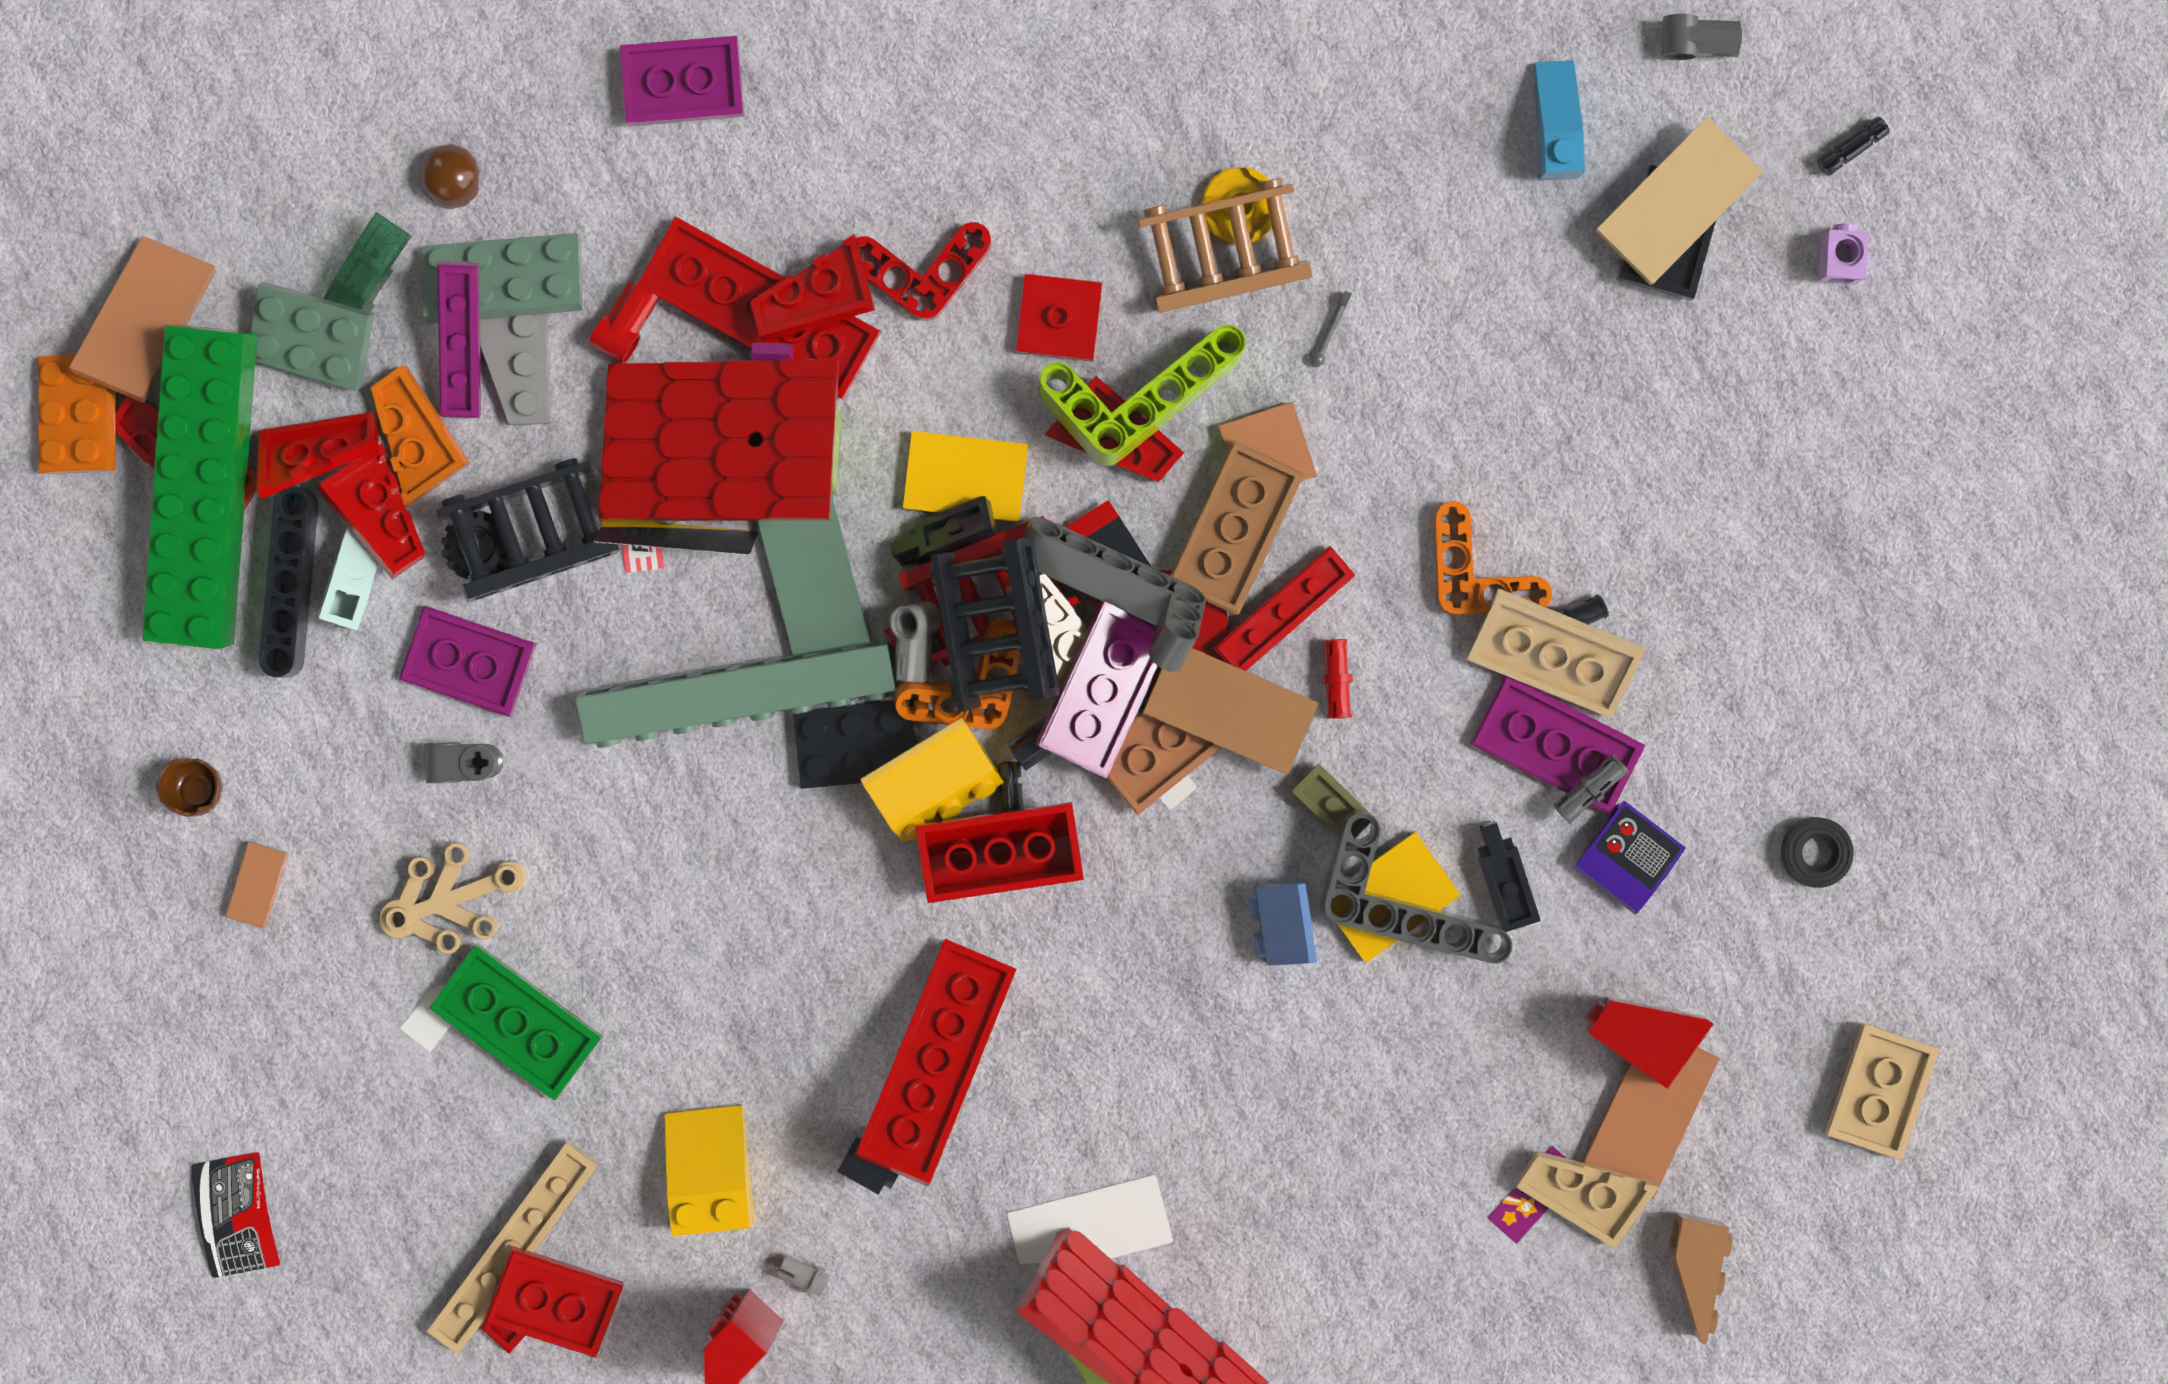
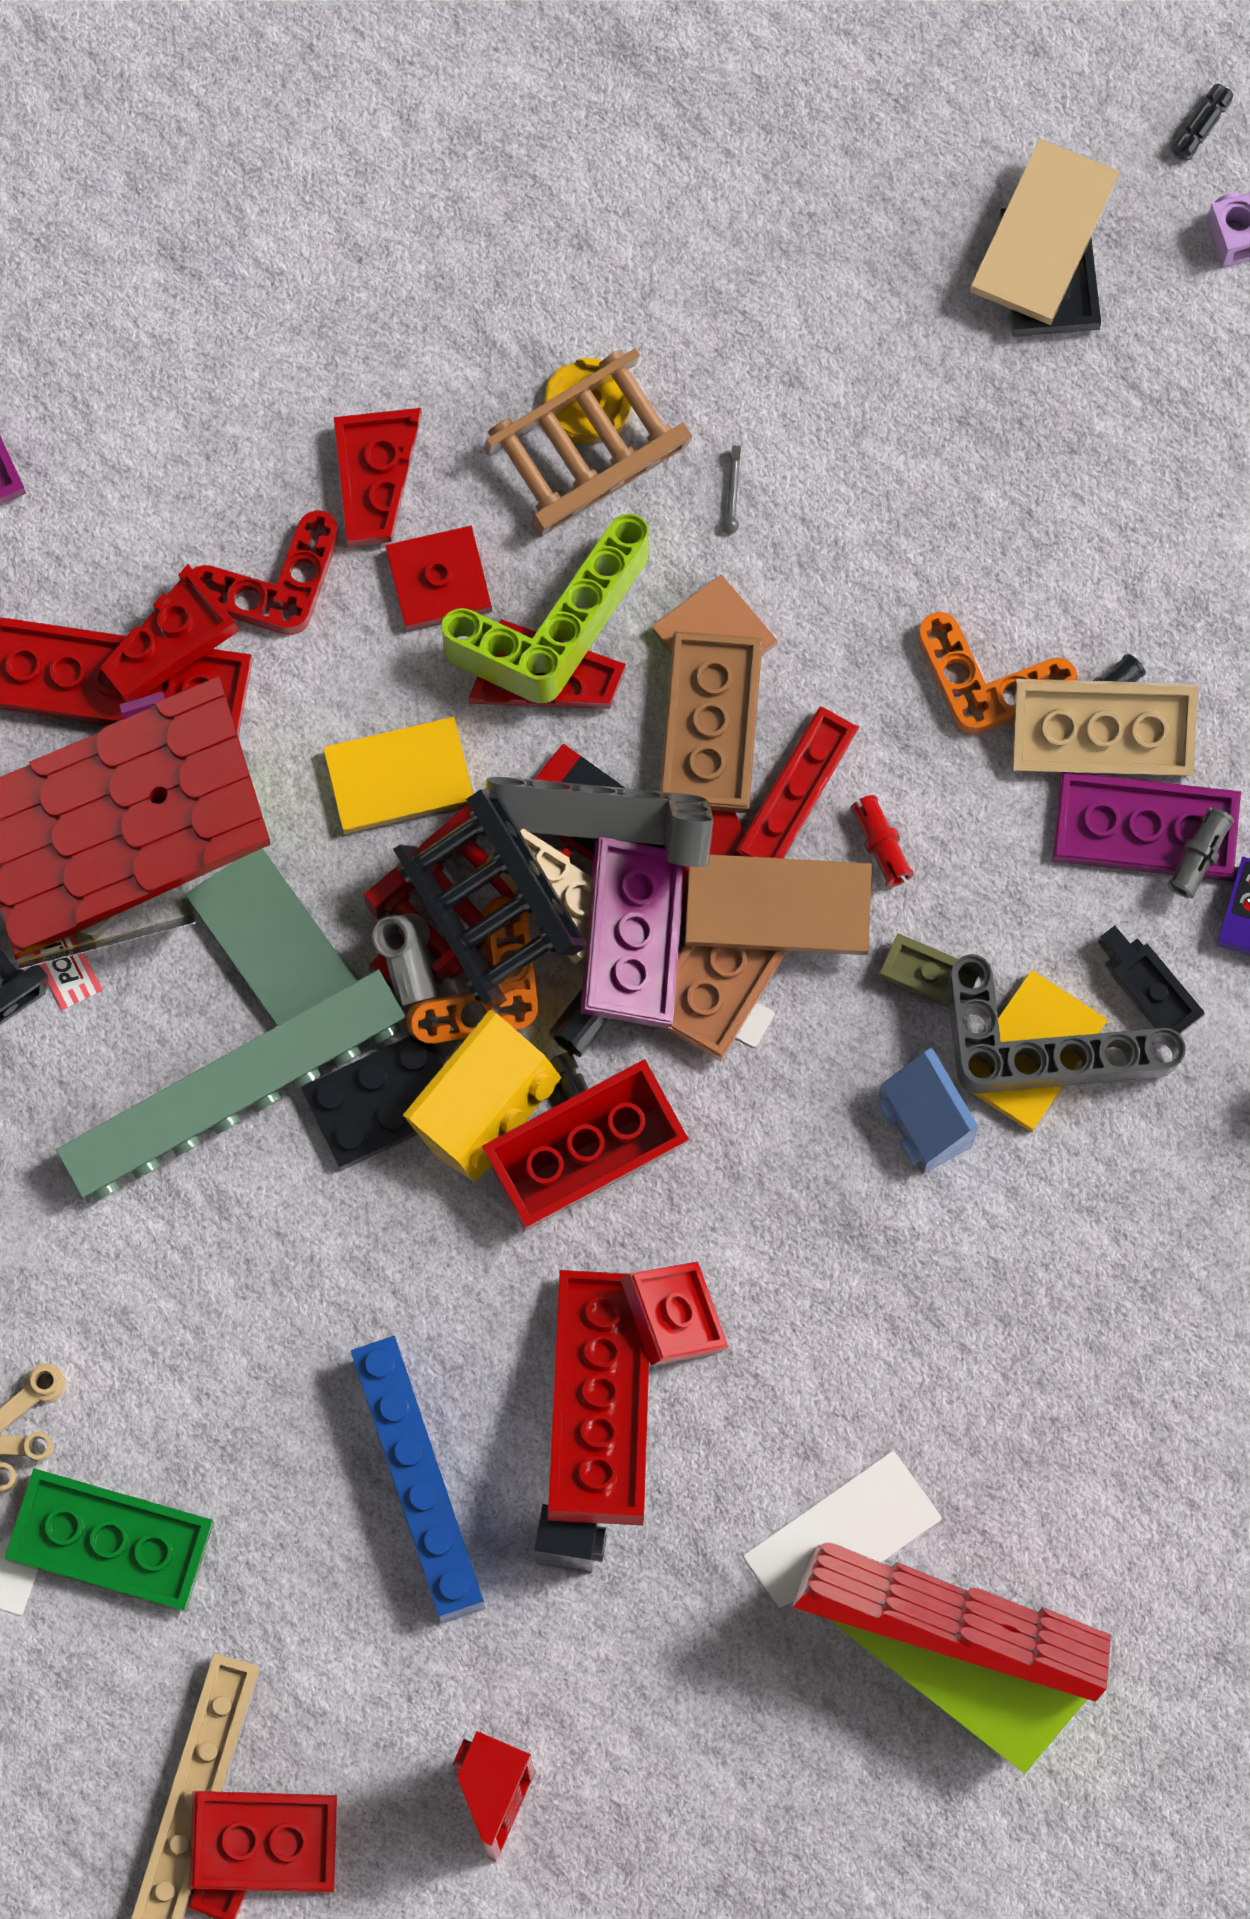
camera: 20 degrees left, 15 degrees down
(708, 1171) = (387, 1627): yellow slope -> none
(772, 1066) = (418, 1479): none -> blue brick
(803, 1276) = (542, 1707): light grey pin -> none
(946, 532) = (407, 824): black hinge -> none
(1021, 1010) = (674, 1313): none -> plate
(1038, 203) = (373, 470): none -> red wing
(1558, 121) = (889, 204): dark azure slope -> none
(1687, 37) = (989, 74): dark grey piece -> none

